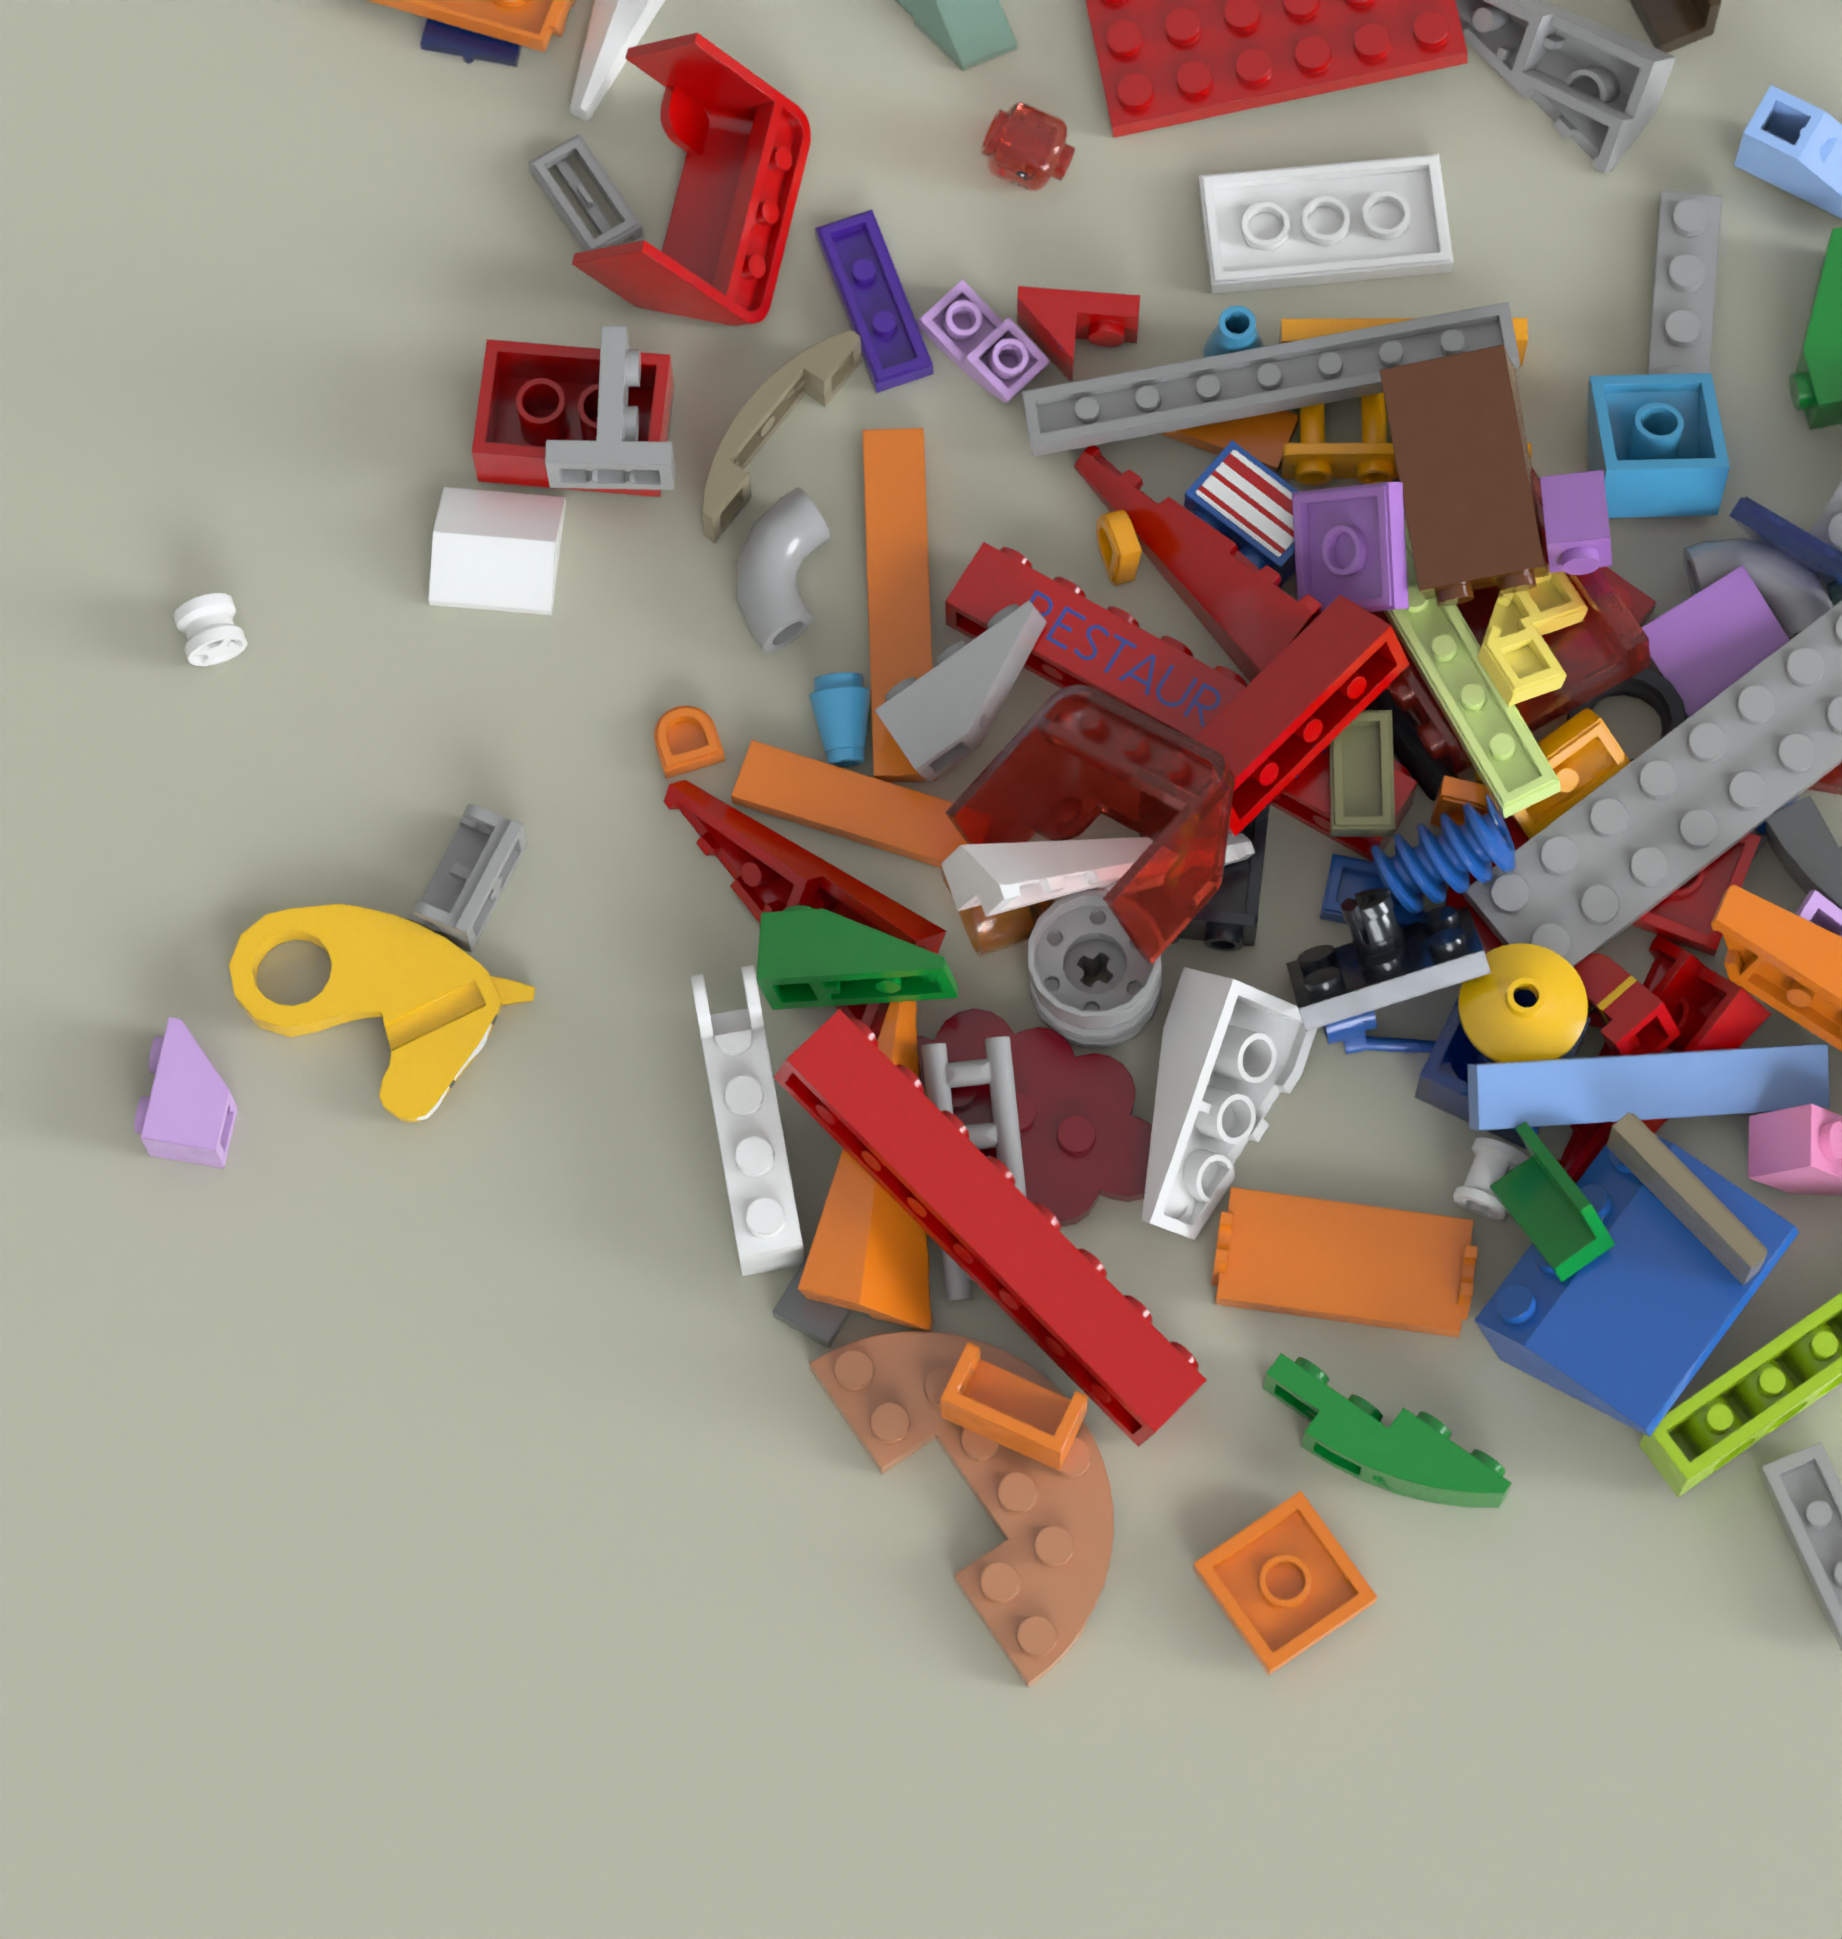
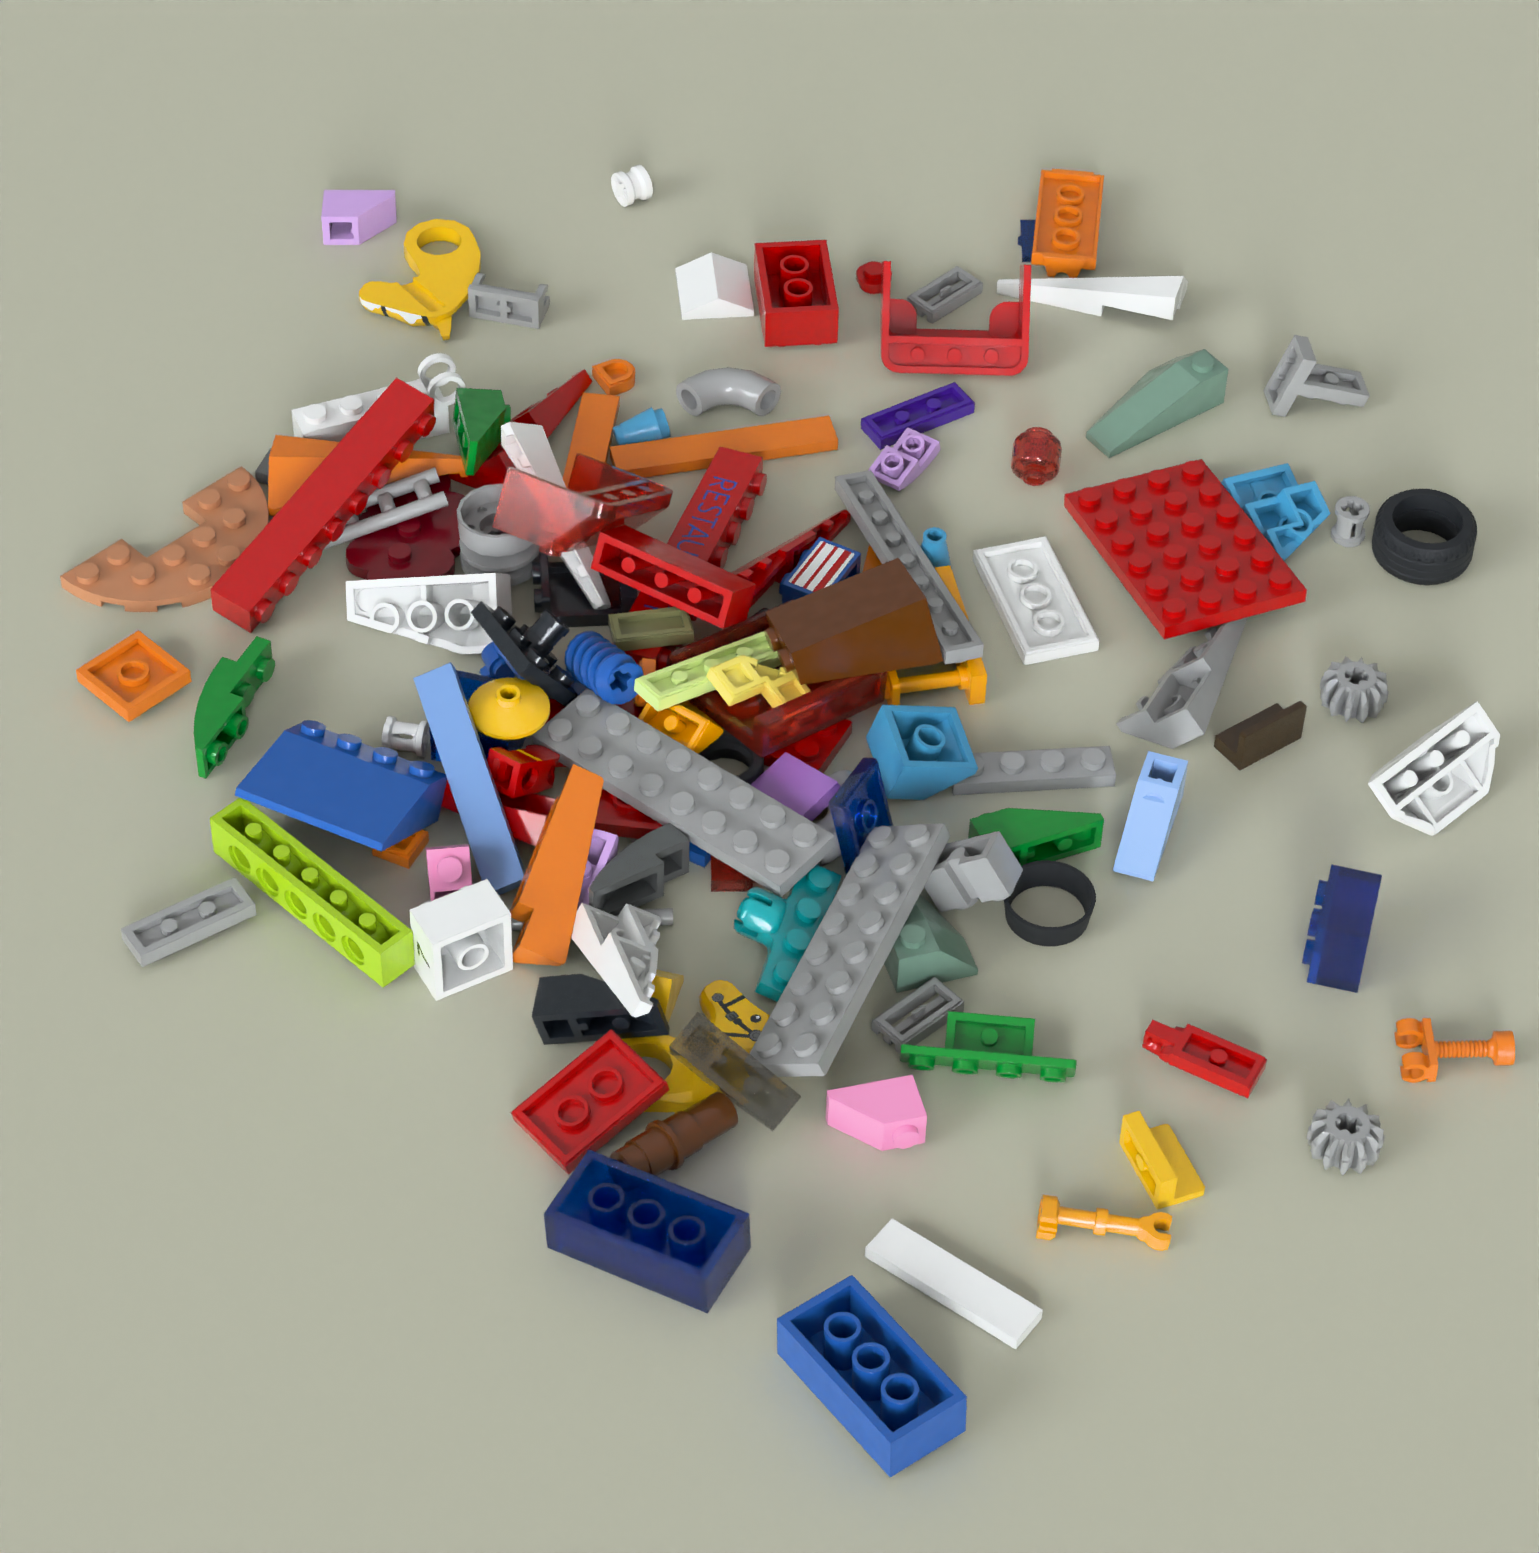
camera: 75 degrees right, 25 degrees down
(523, 294) = (869, 277): none -> red plate
(616, 456) = (784, 279): light grey bracket -> none
(814, 372) = (817, 371): dark tan slope -> none
(956, 702) = (660, 454): light grey slope -> none
(1012, 1409) = (217, 528): orange panel -> none
(1061, 316) = (922, 488): red slope -> none
(1118, 546) = (783, 526): light orange tile -> none
(1345, 1262) = (345, 677): orange brick -> none
(1352, 545) = (790, 591): medium lavender tile -> none
(1551, 1209) = (379, 726): green panel -> none
(1576, 522) = (831, 677): medium lavender brick -> none
(1687, 1197) = (384, 776): dark tan tile -> none

